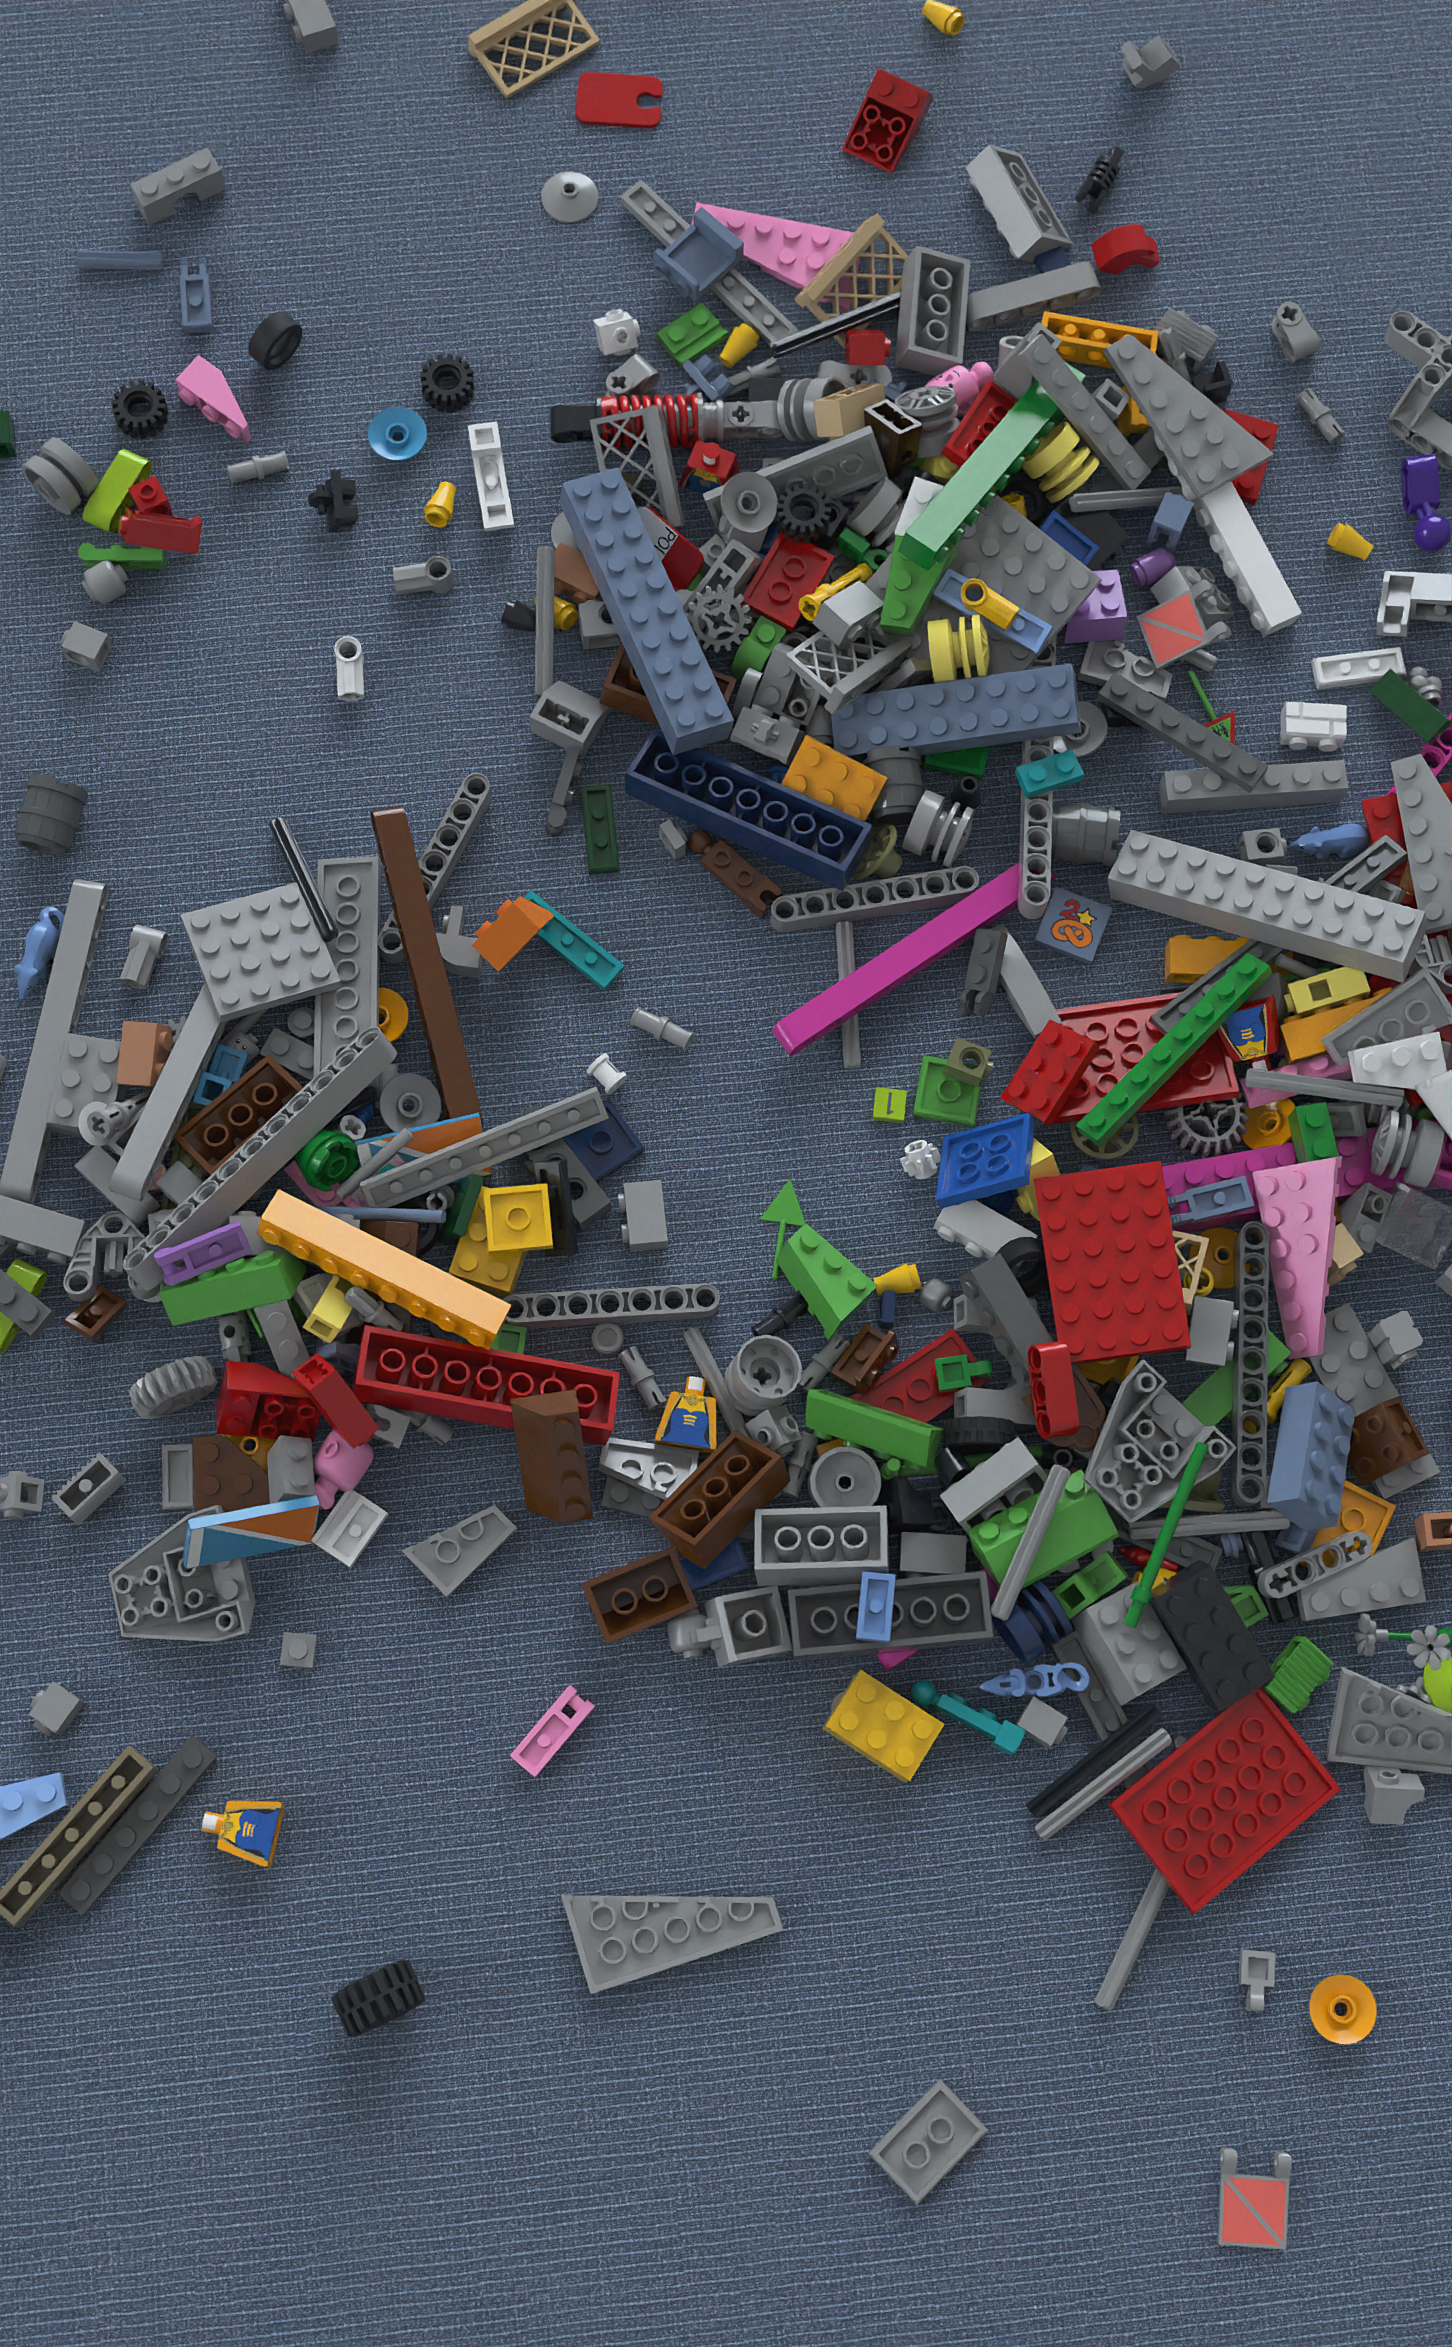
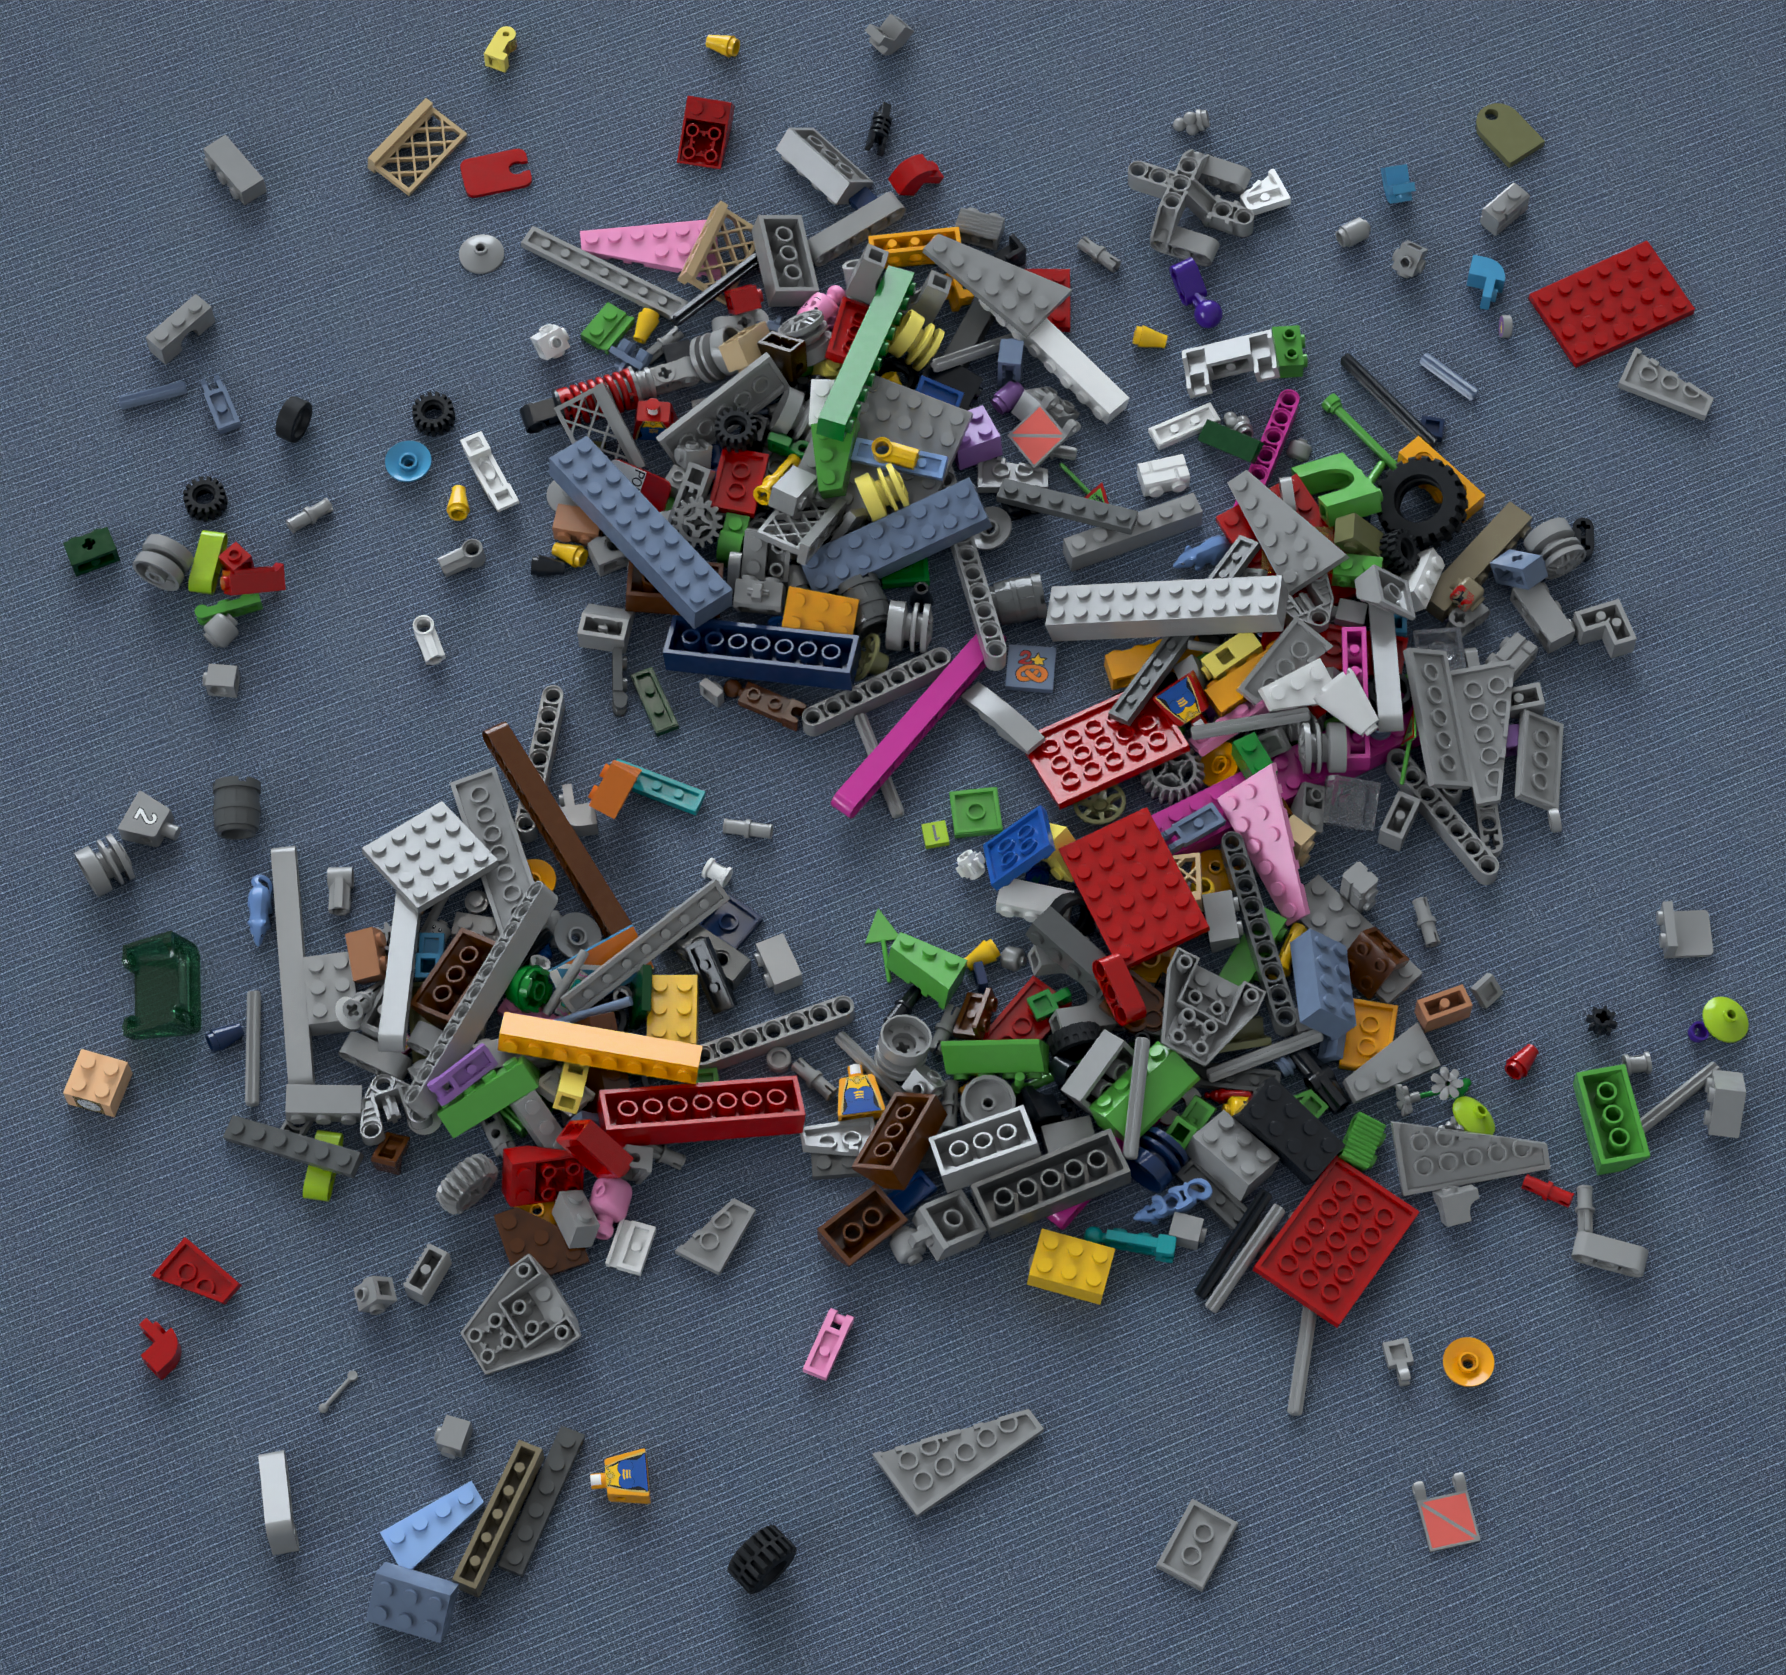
camera: 10 degrees left, 10 degrees down
(178, 1477) = (490, 1250): light grey tile -> none
(208, 390) = (256, 471): bright pink slope -> none
(250, 1531) = (560, 1264): tile -> none
(298, 1650) = (621, 1344): light grey plate -> none
(304, 879) = (444, 798): black axle -> none
(329, 501) = (373, 523): black hips -> none
(371, 1309) = (599, 1079): light grey axle -> none
(518, 1218) = (686, 987): yellow plate -> none
(544, 619) = (564, 562): light grey axle -> none
(552, 1456) = (767, 1145): reddish brown slope -> none
(632, 378) = (573, 371): light grey piece -> none
(699, 256) = (596, 268): sand blue panel -> none
(760, 497) = (700, 428): light grey dish -> none
(875, 1607) = (1038, 1174): medium blue plate -> none
(964, 1050) = (981, 776): olive brick -> none
(983, 971) = (974, 718): dark grey hinge -> none
(1049, 773) = (978, 562): teal plate -> none
(1050, 1072) = (1046, 772): red plate -> none
(1084, 413) = (922, 299): light grey plate -> none
(1142, 1593) = (1229, 1112): green bar -> none
(1172, 351) = (973, 238): light grey axle -> none
(1174, 1049) = (1132, 728): green plate -> none
(1268, 837) = (1154, 564): light grey brick -> none
(1294, 332) = (1060, 199): light grey piece -> none
(1315, 1565) = (1350, 1060): light grey beam -> none

